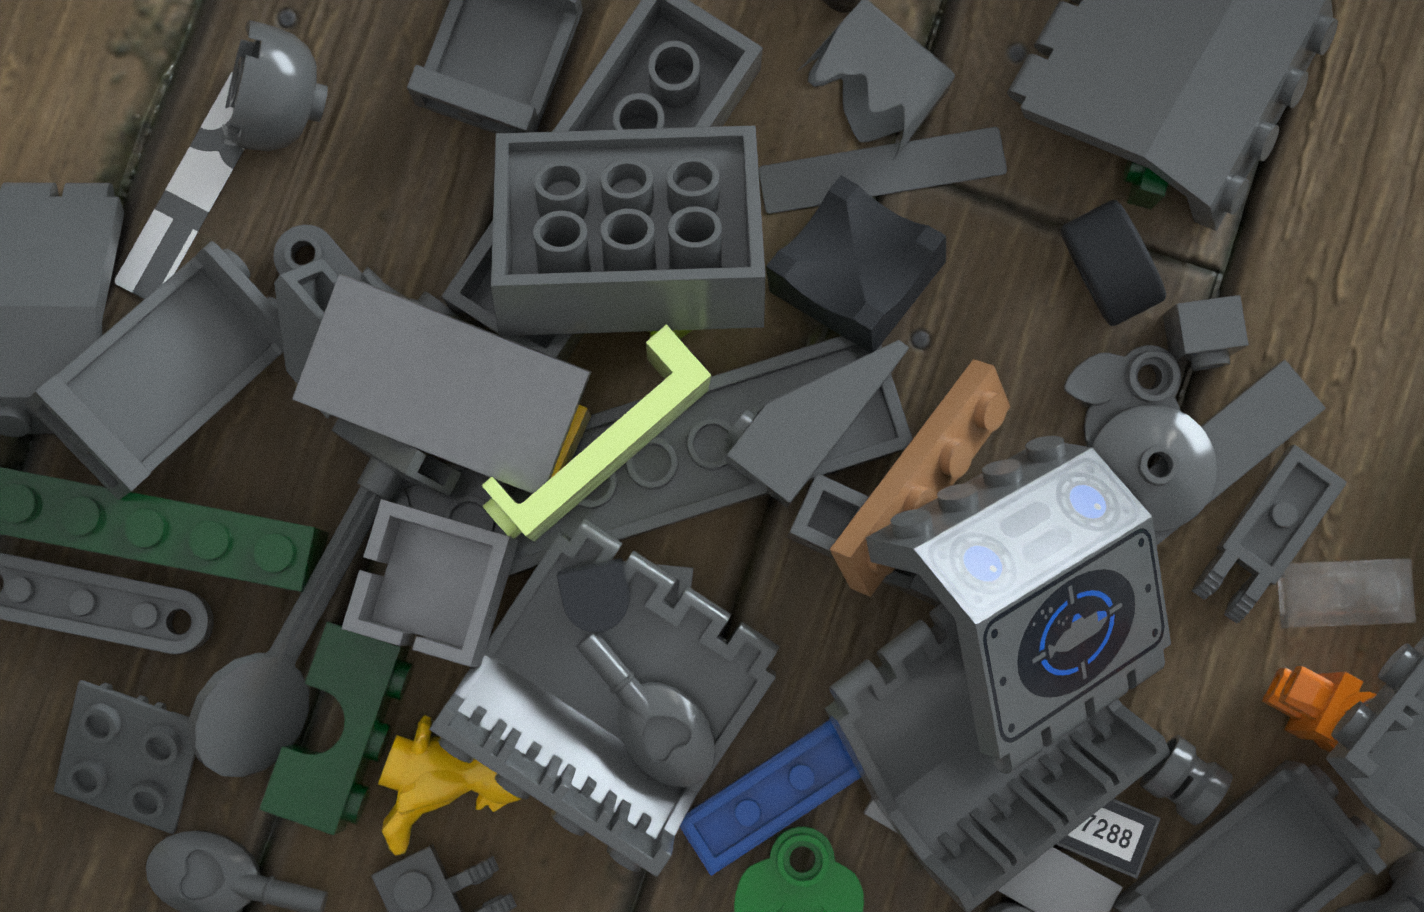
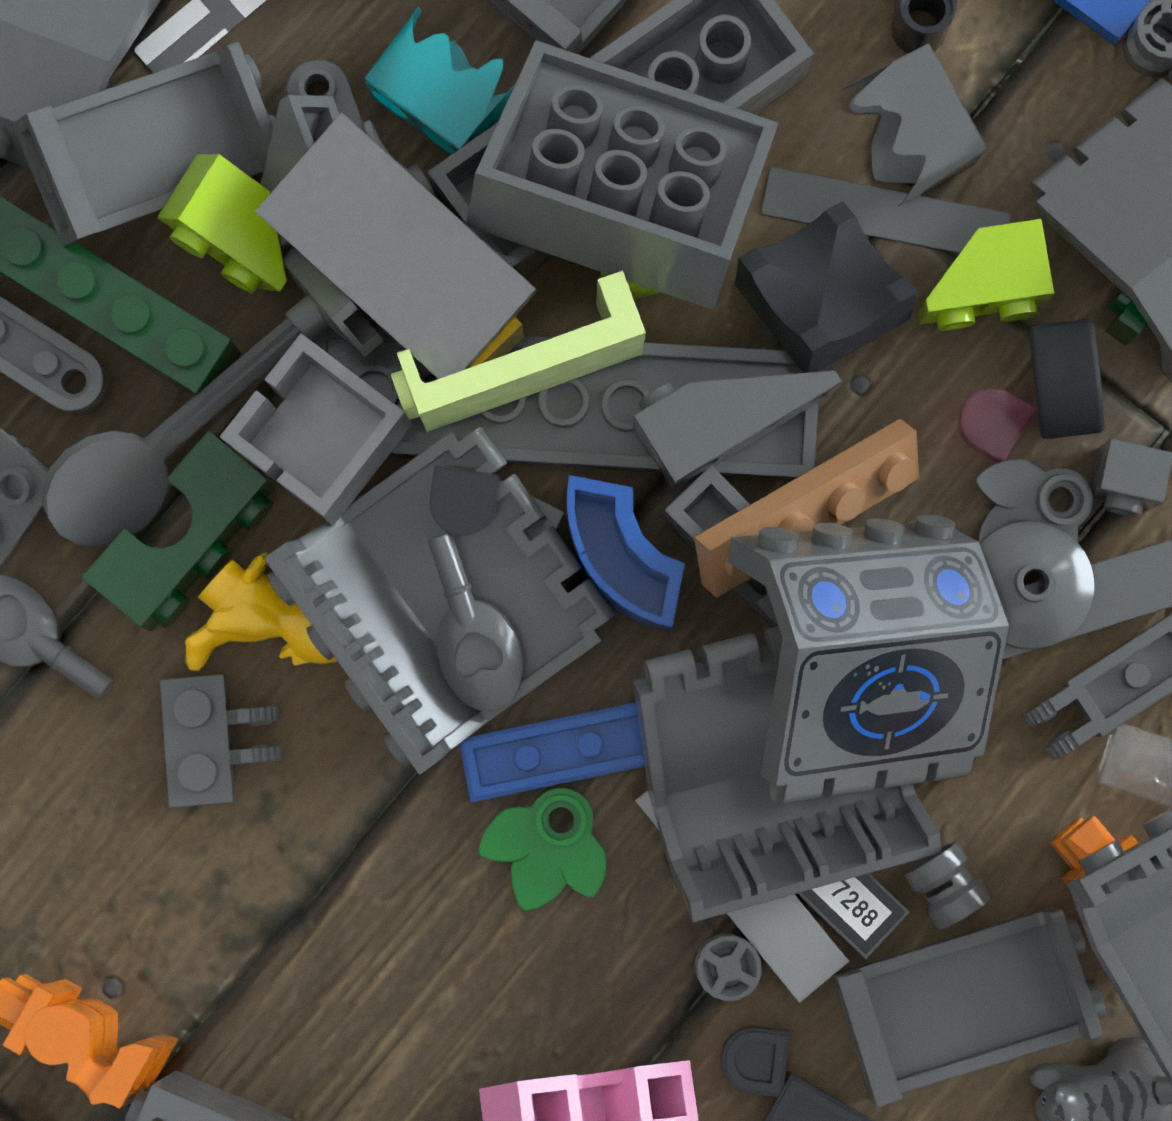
camera: 25 degrees right, 0 degrees up
(255, 412) = (217, 216): none -> lime slope
(419, 212) = (436, 88): none -> teal piece
(762, 591) = (618, 556): none -> blue brick
(1007, 187) = (996, 272): none -> lime slope
(1058, 328) = (993, 422): none -> clear pink tile

